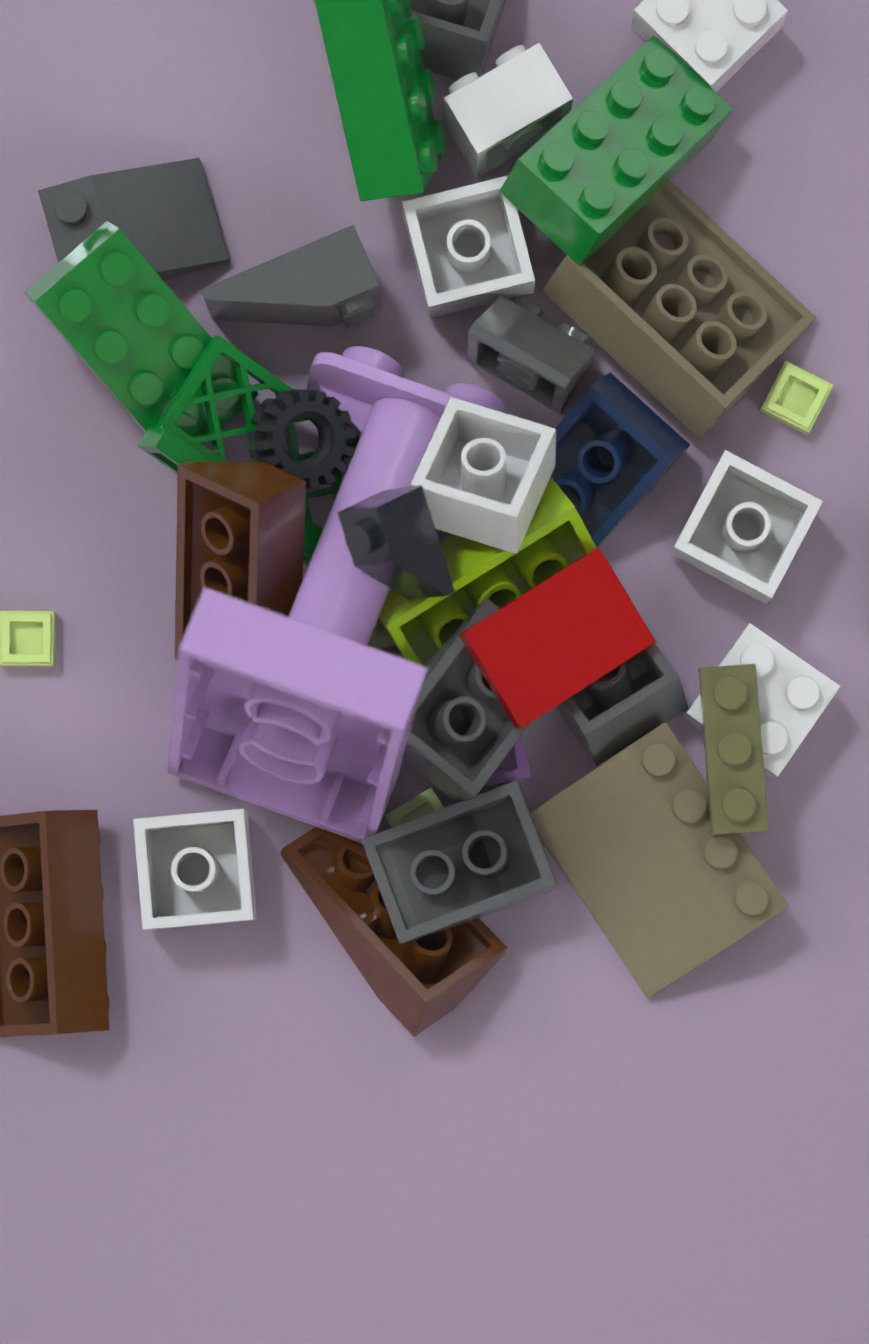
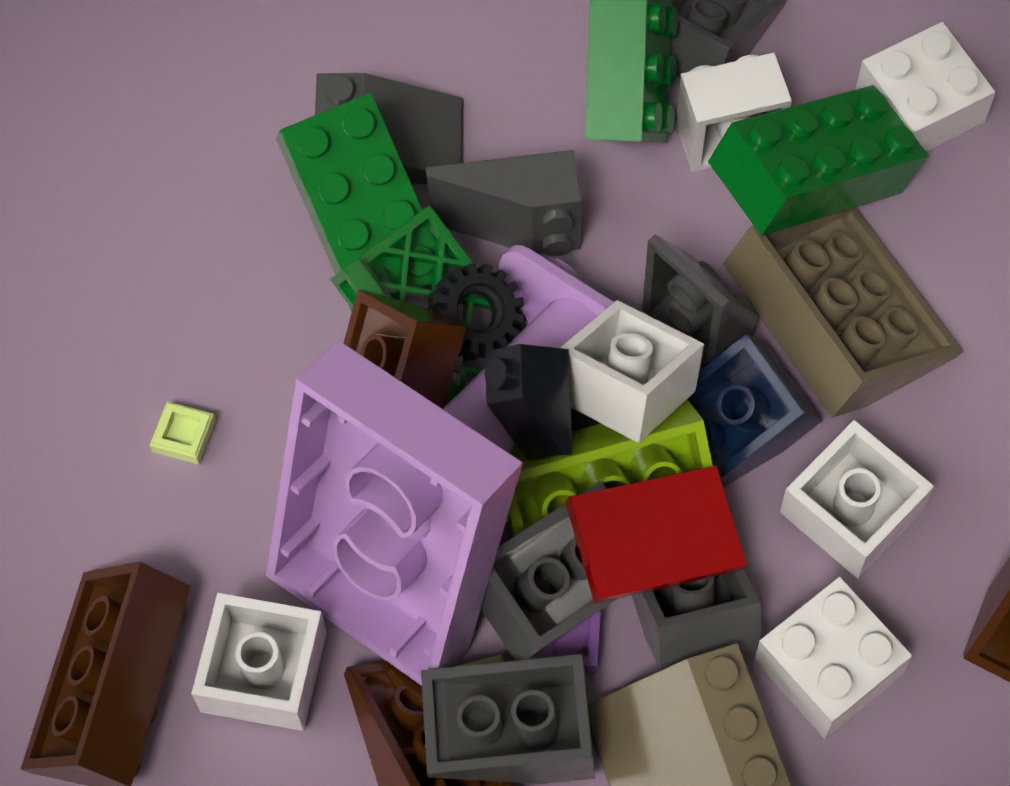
camera: 15 degrees right, 20 degrees down
(468, 247) = (668, 198): white brick -> none
(733, 749) = (795, 681): olive plate -> none
(796, 398) = (928, 411): yellowish green tile -> none

